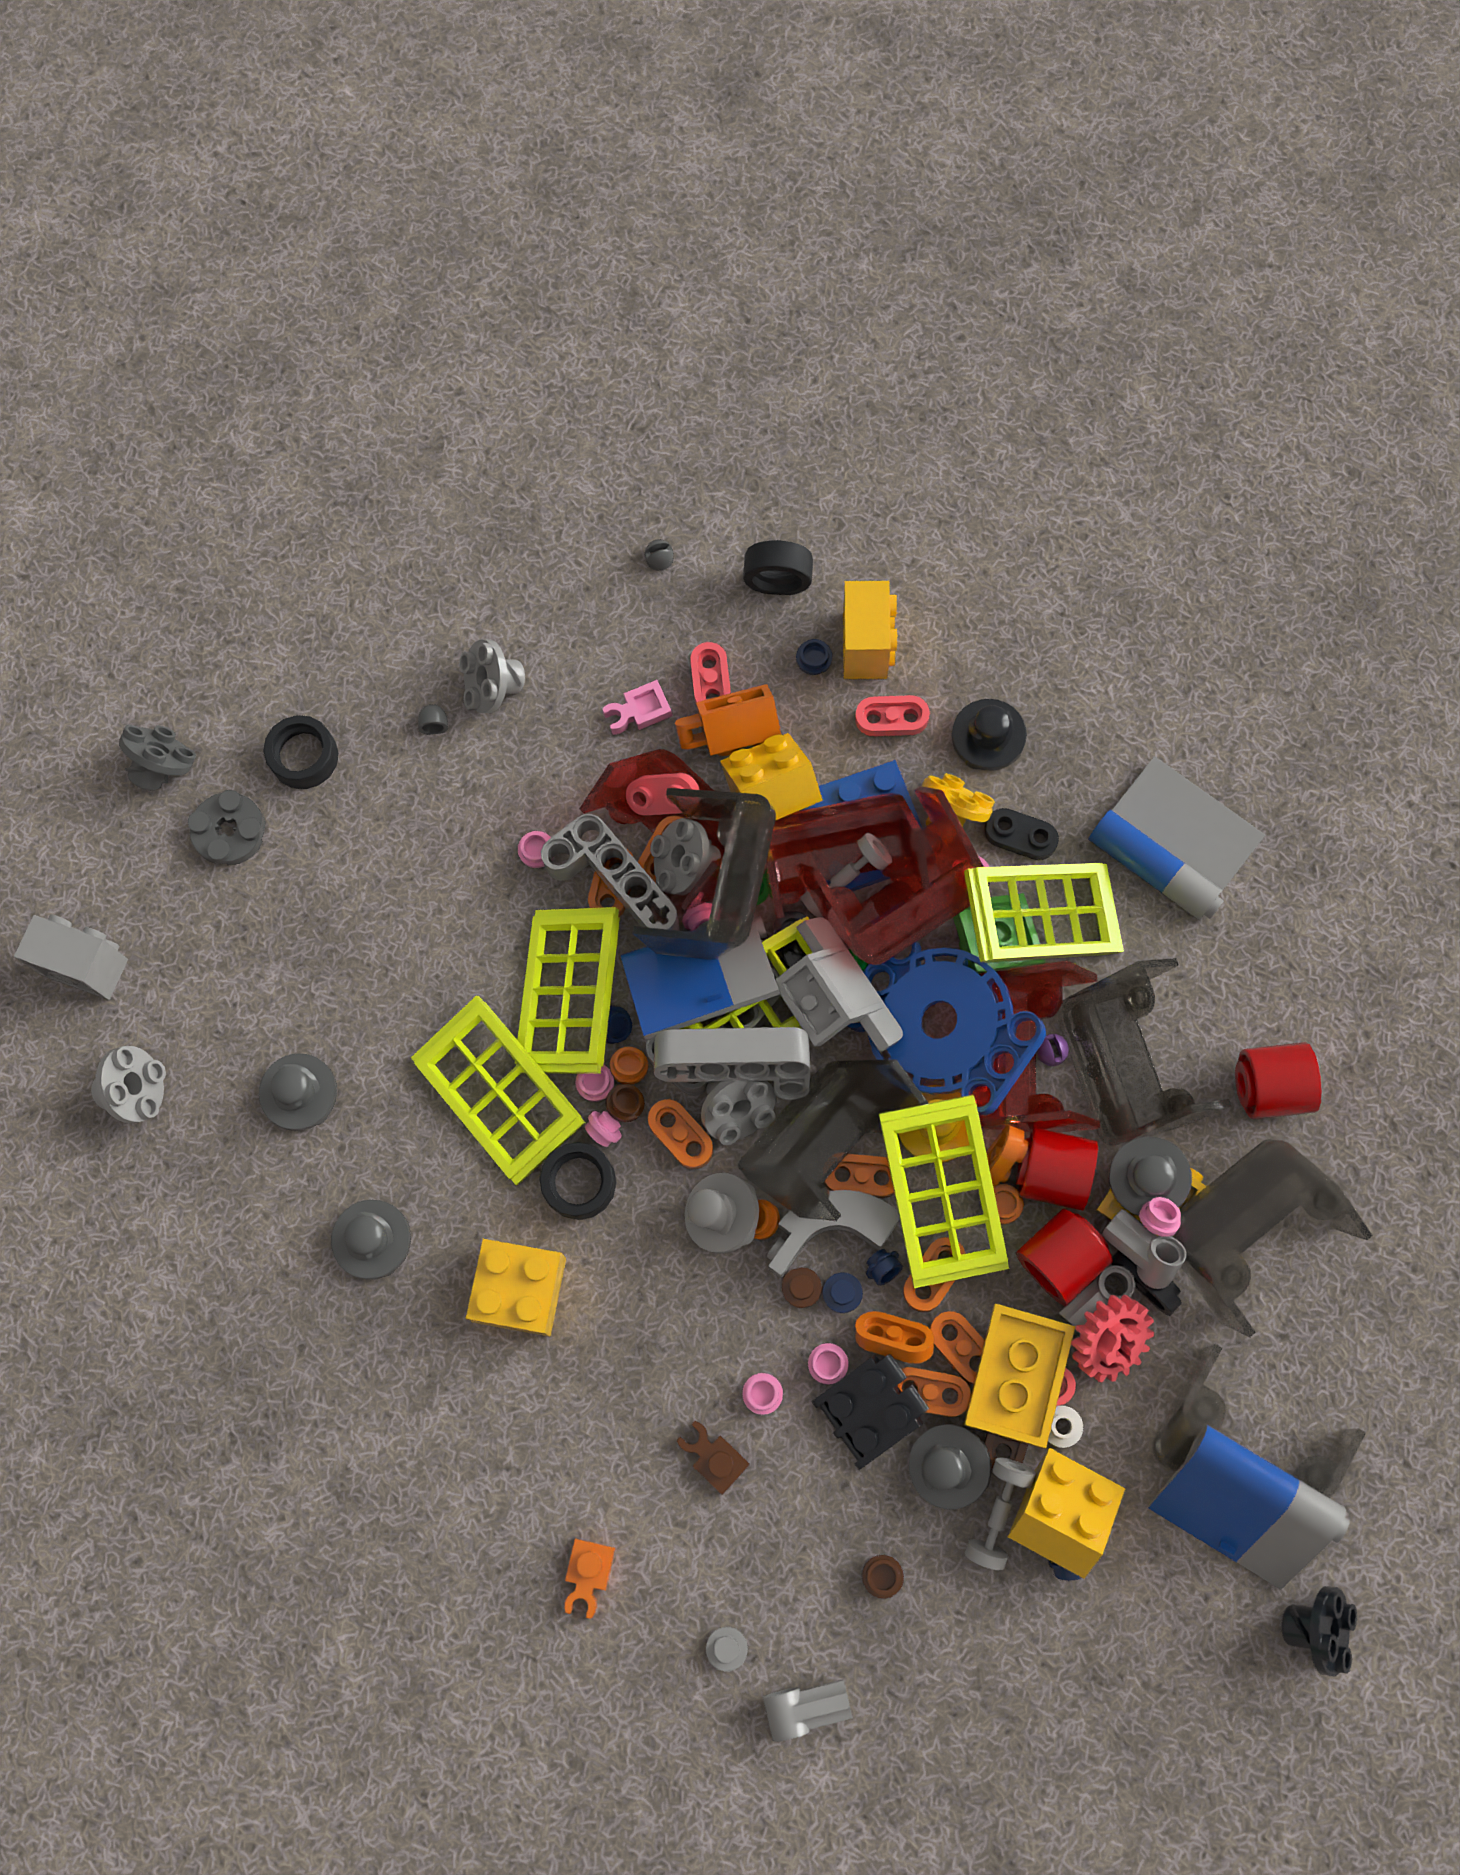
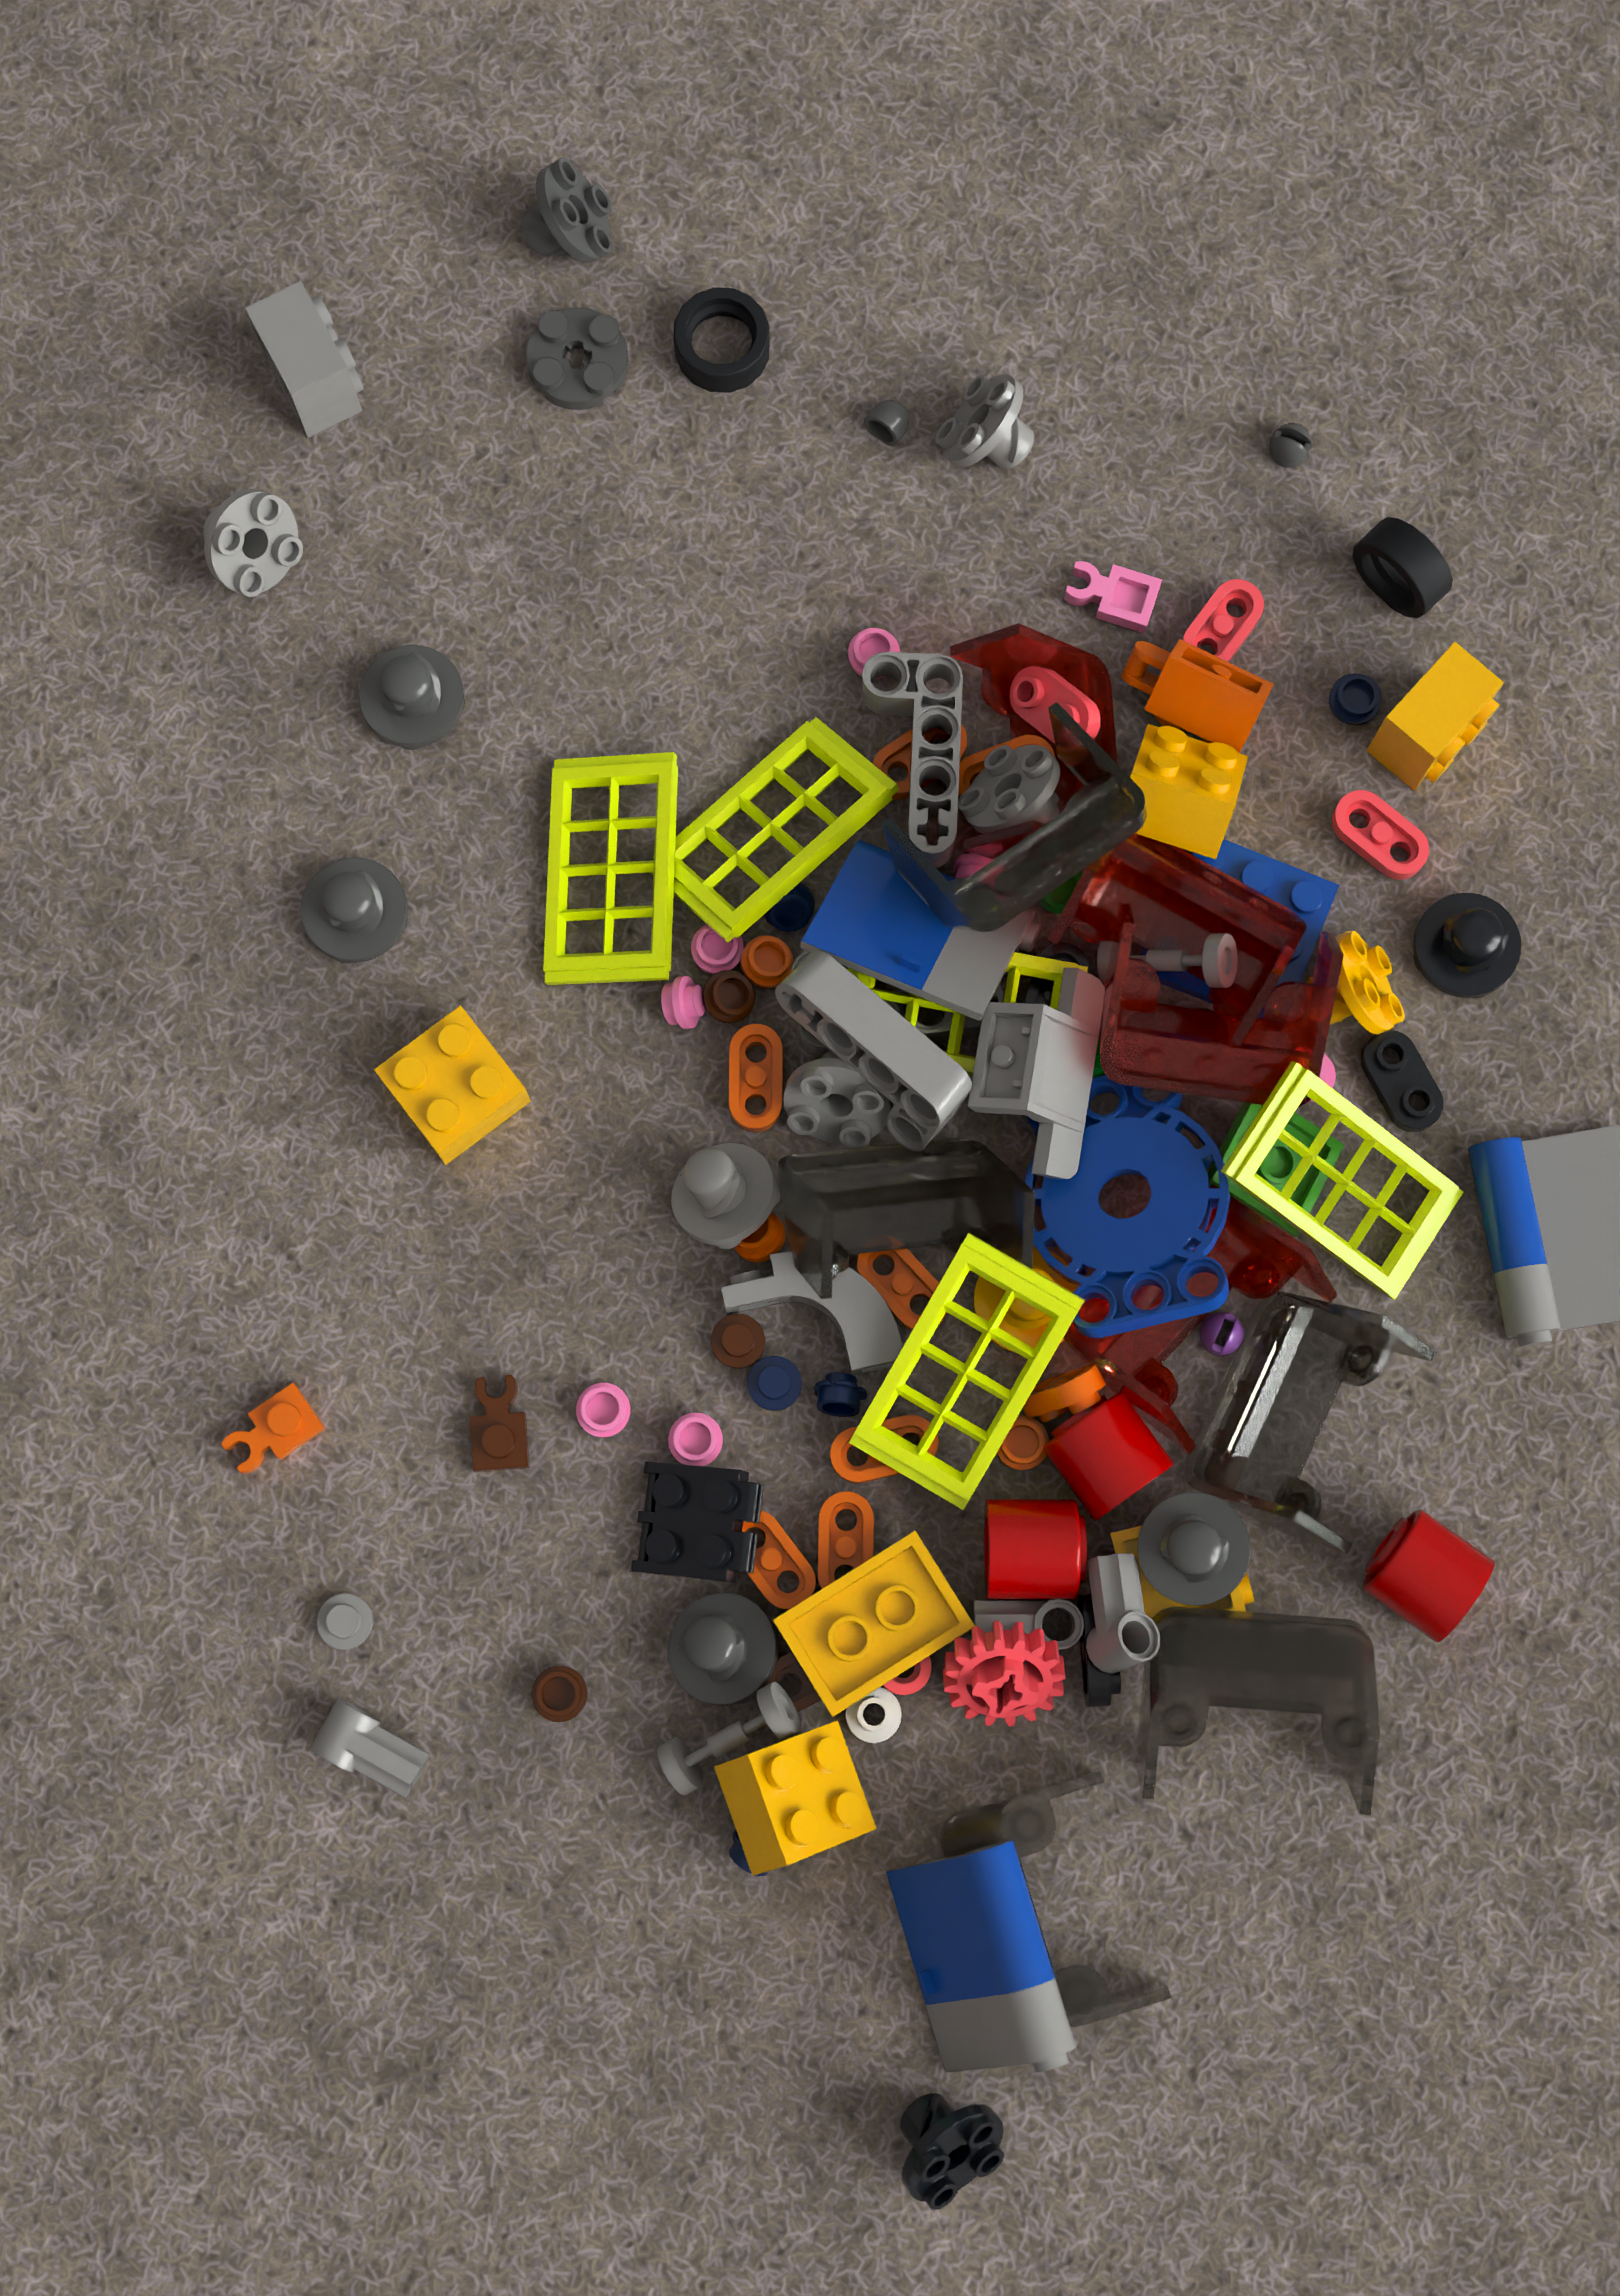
camera: 35 degrees right, 5 degrees up
(554, 1163) = (601, 994): black tyre -> none
(894, 1336) = (786, 1472): orange plate -> none
(1160, 1216) = (1163, 1596): bright pink plate -> none

